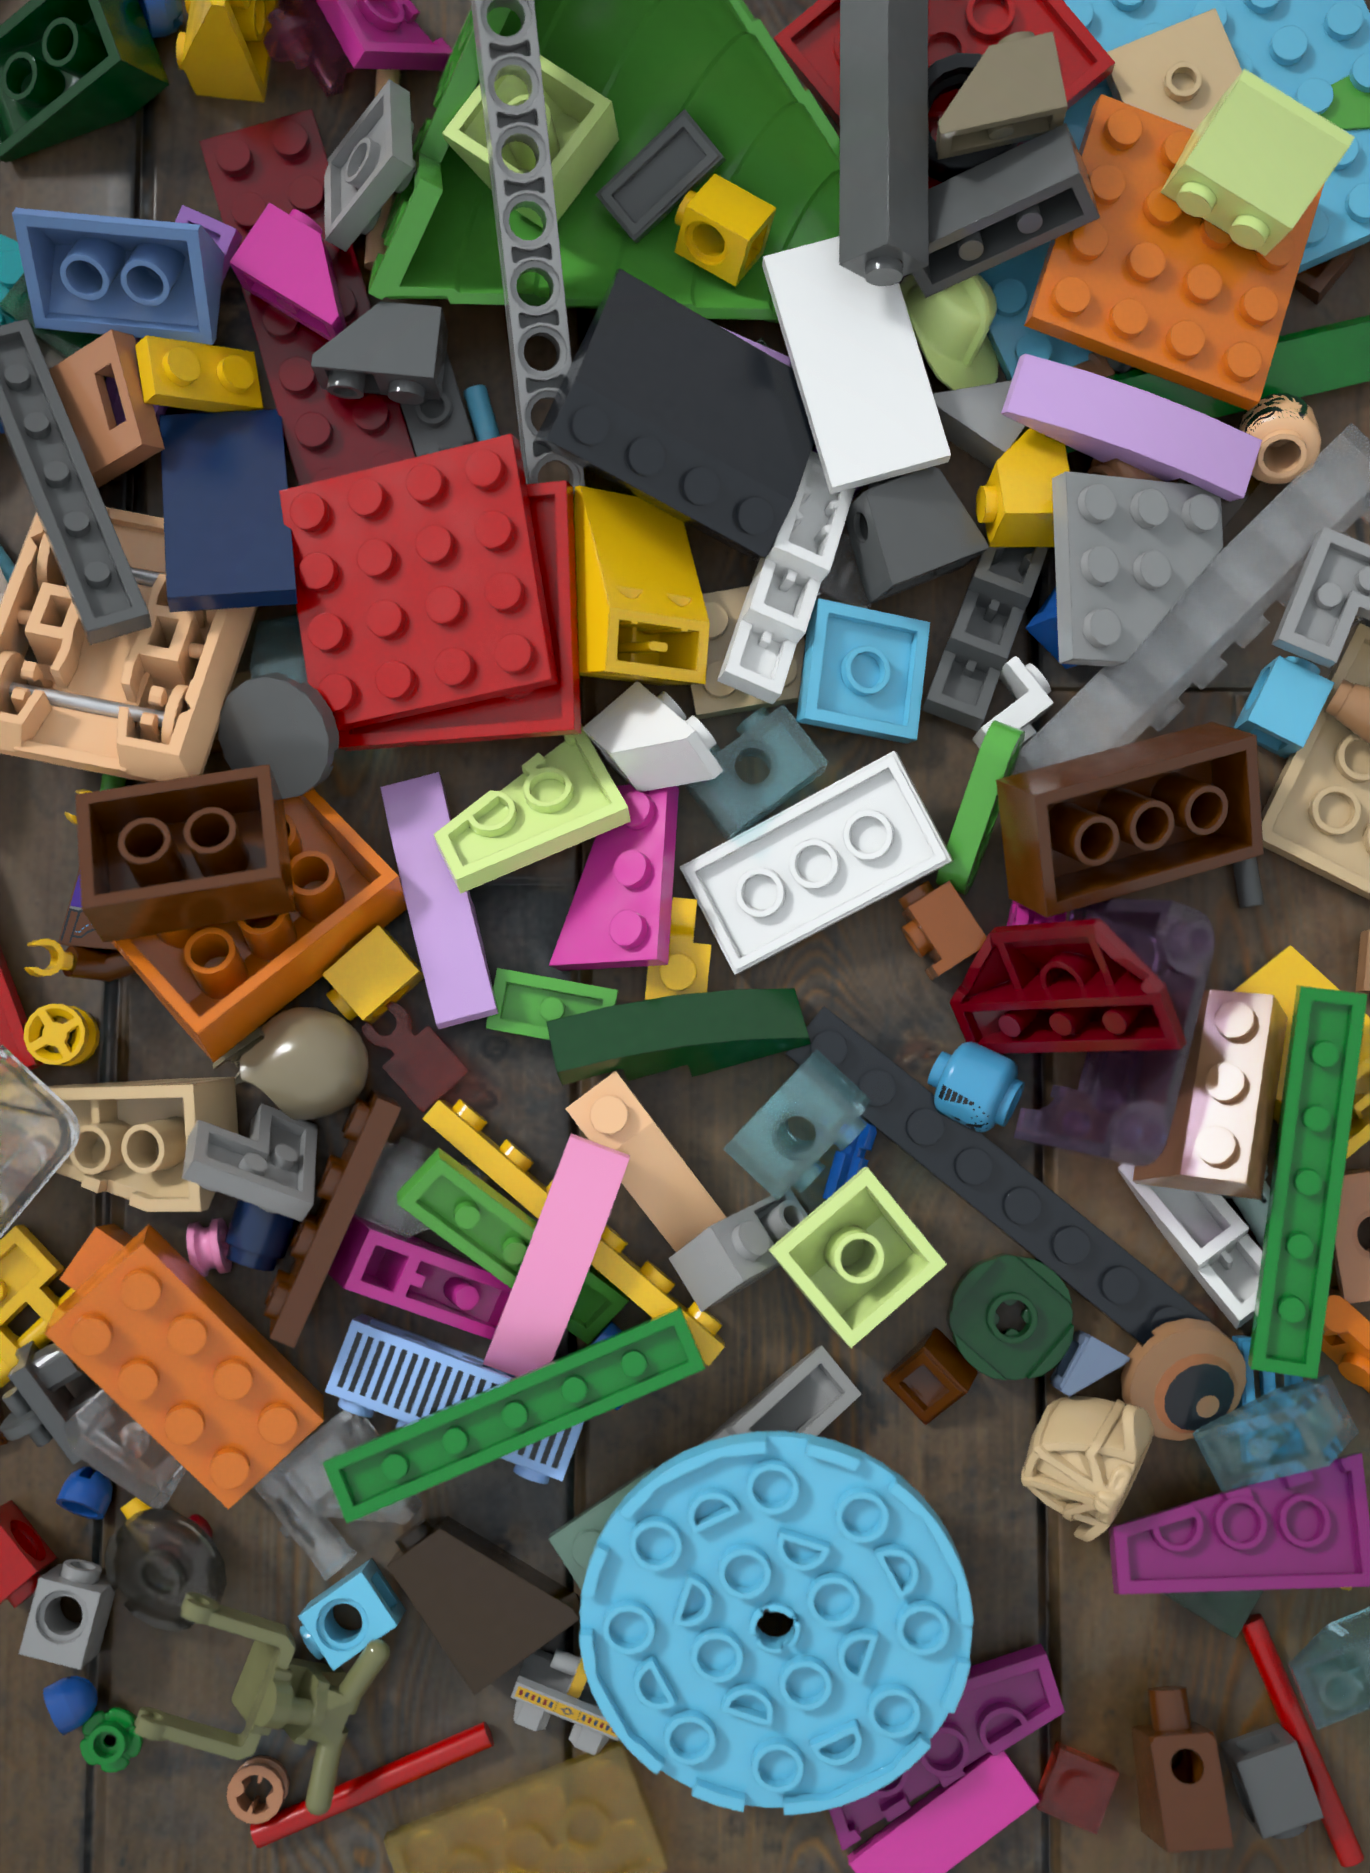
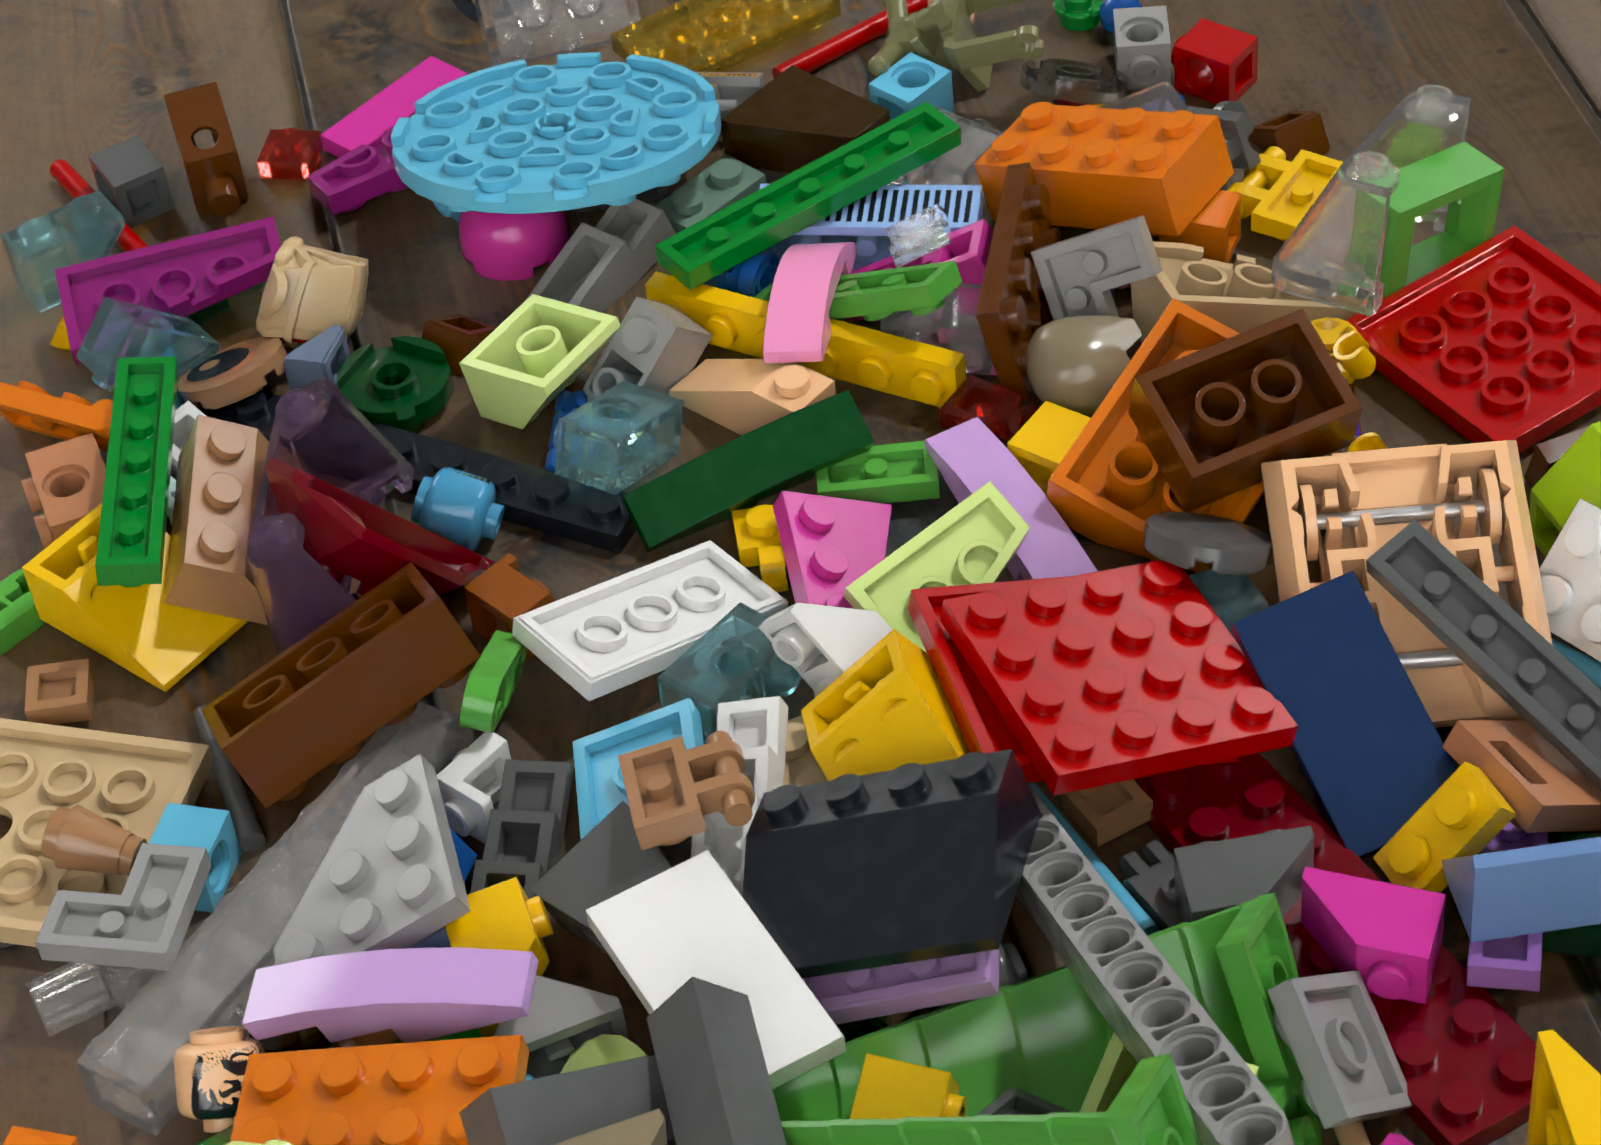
camera: 170 degrees right, 40 degrees down
(418, 1287) = (919, 235): none -> clear slope
(857, 561) = (676, 787): none -> medium nougat plate

